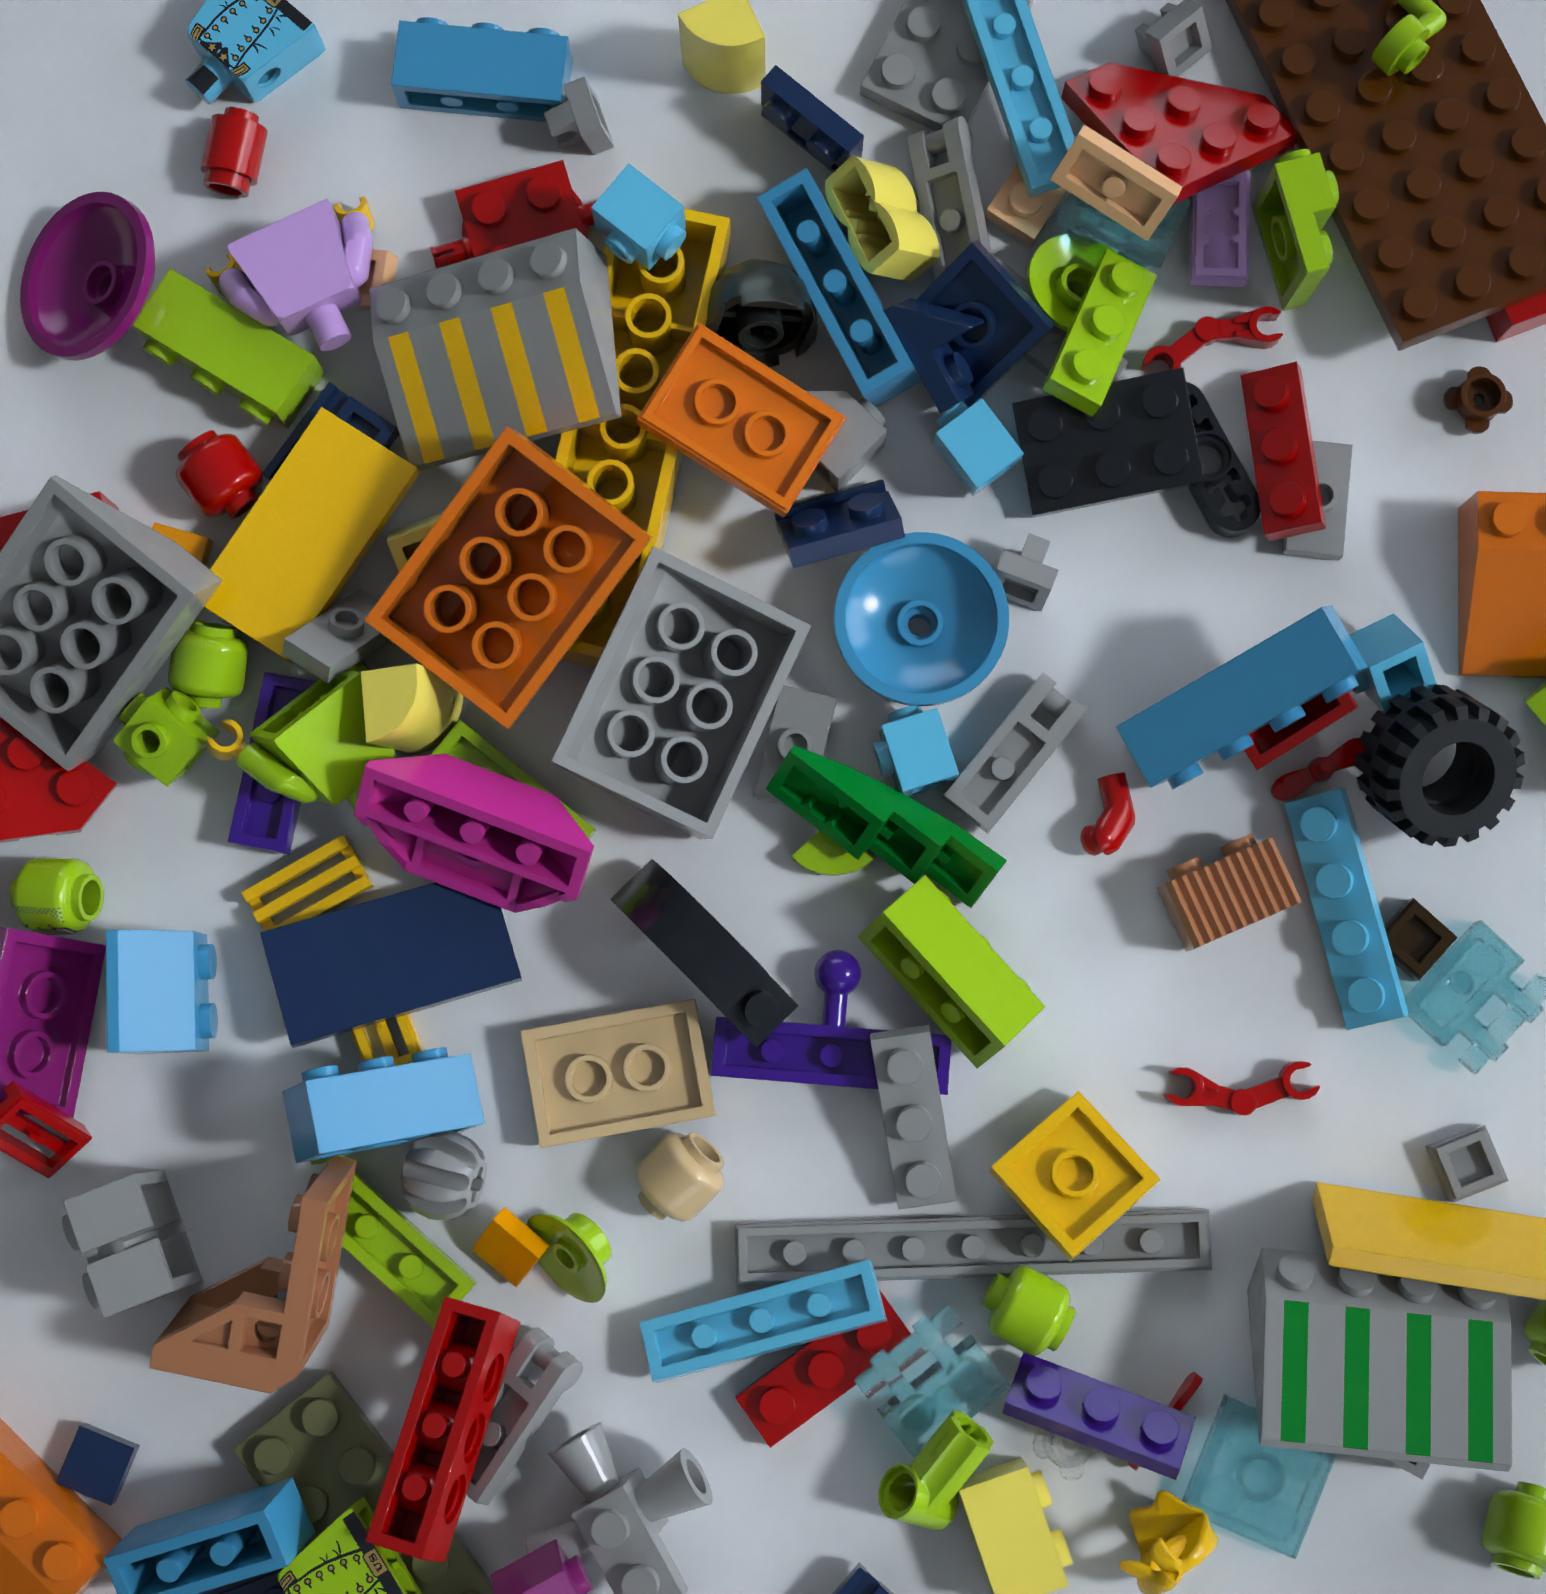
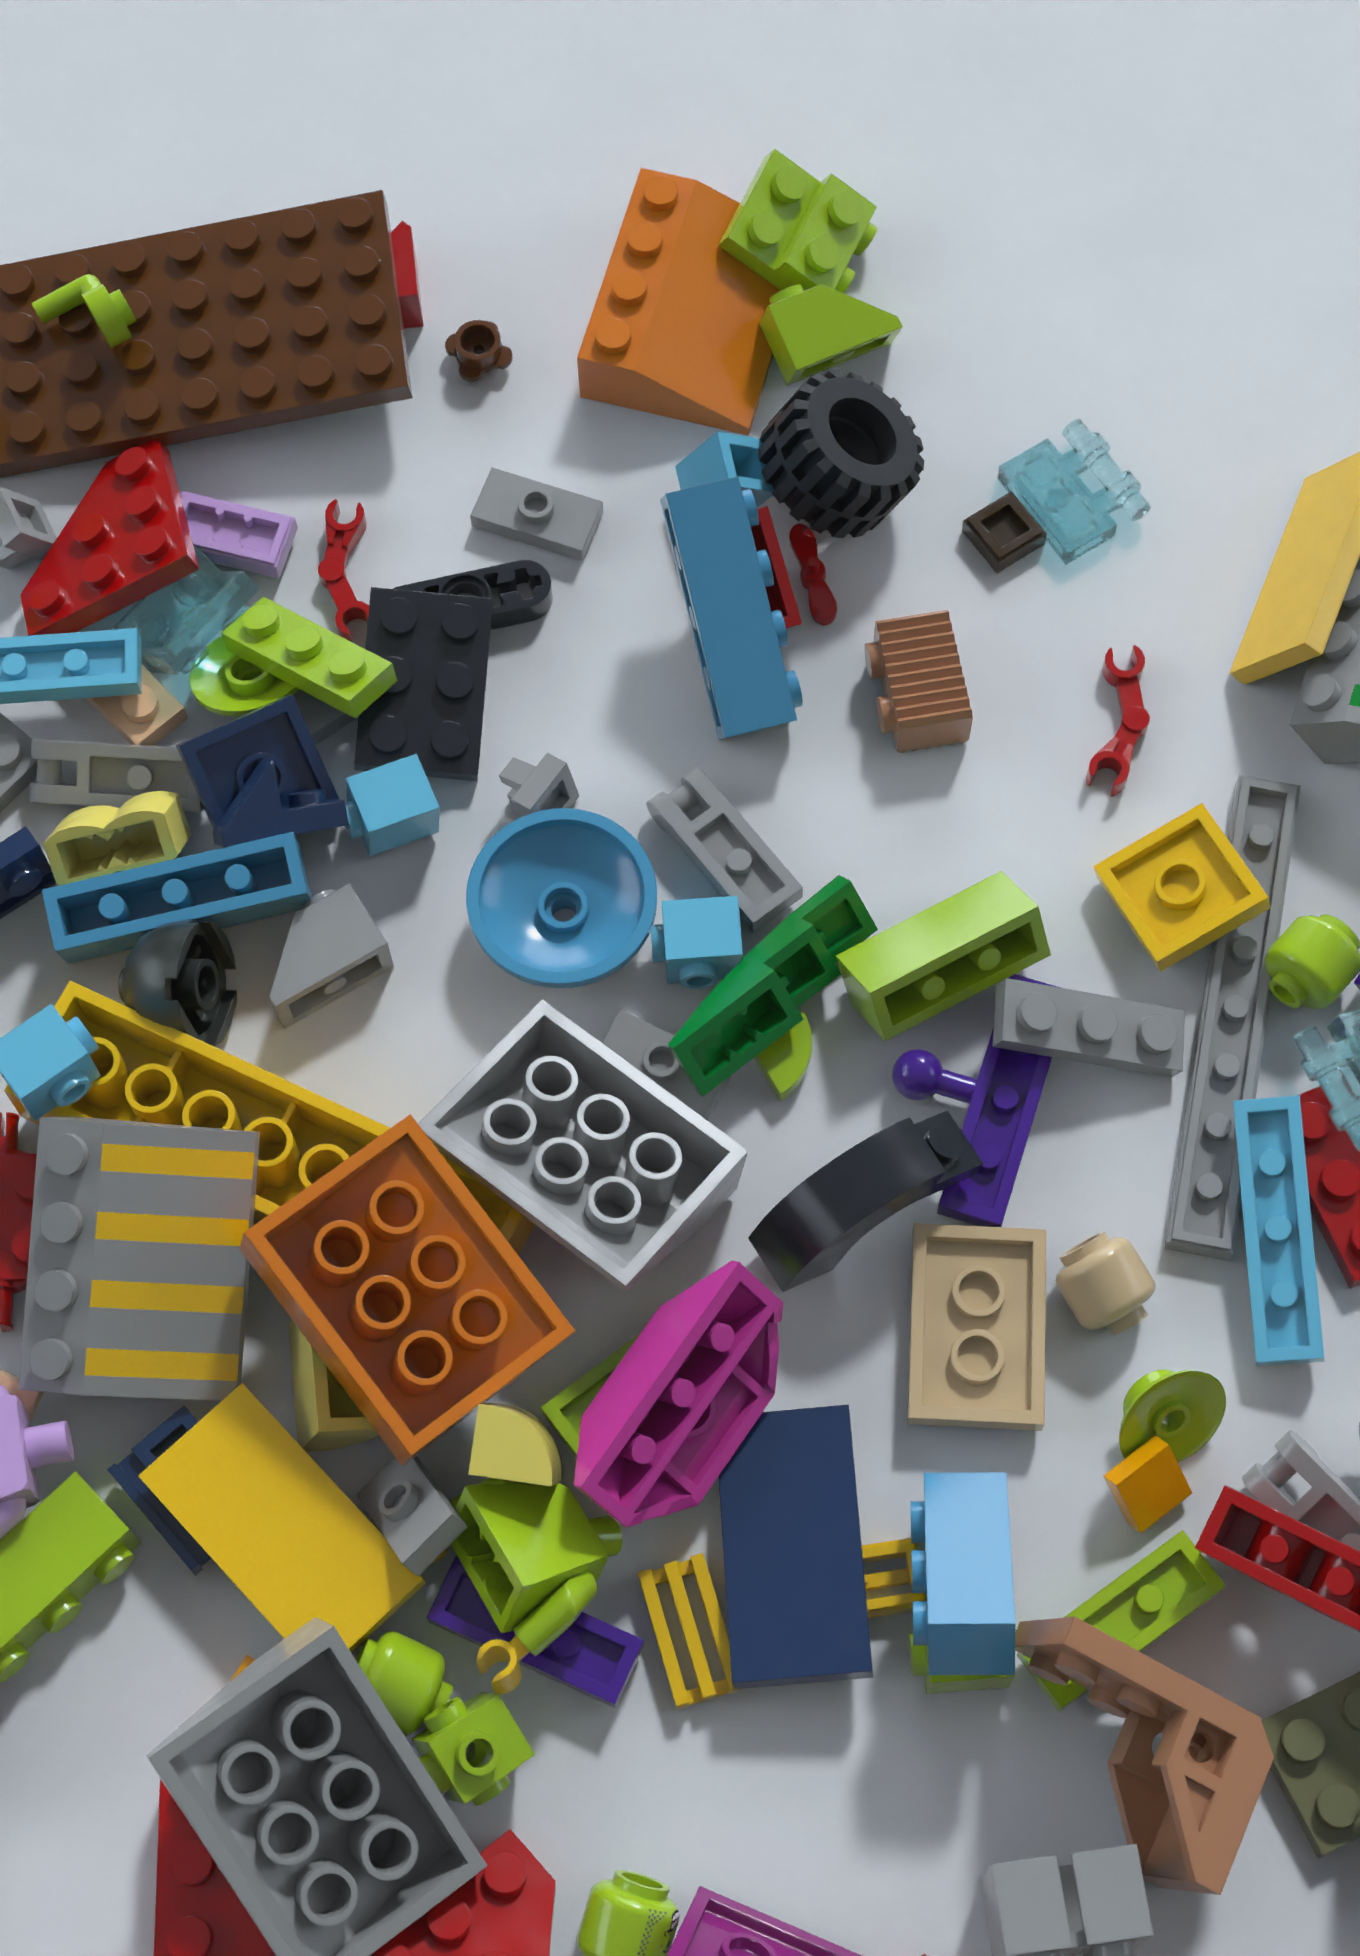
camera: 75 degrees left, 15 degrees down
(159, 991) = (775, 1814): slope -> none
(219, 475) = (178, 1621): red head -> none
(443, 1176) = (1056, 1534): light grey piece -> none
(740, 420) = (297, 1018): orange tile -> none
(839, 523) = (433, 960): dark blue plate -> none
(1116, 183) = (161, 596): light nougat plate -> none
(1116, 819) = (817, 768): red arm -> none
(1283, 452) = (481, 526): red plate -> none
(1290, 221) = (257, 458): lime plate -> none
(1346, 909) = (961, 580): medium azure plate -> none
(1467, 1163) = (1236, 537): light grey tile -> none

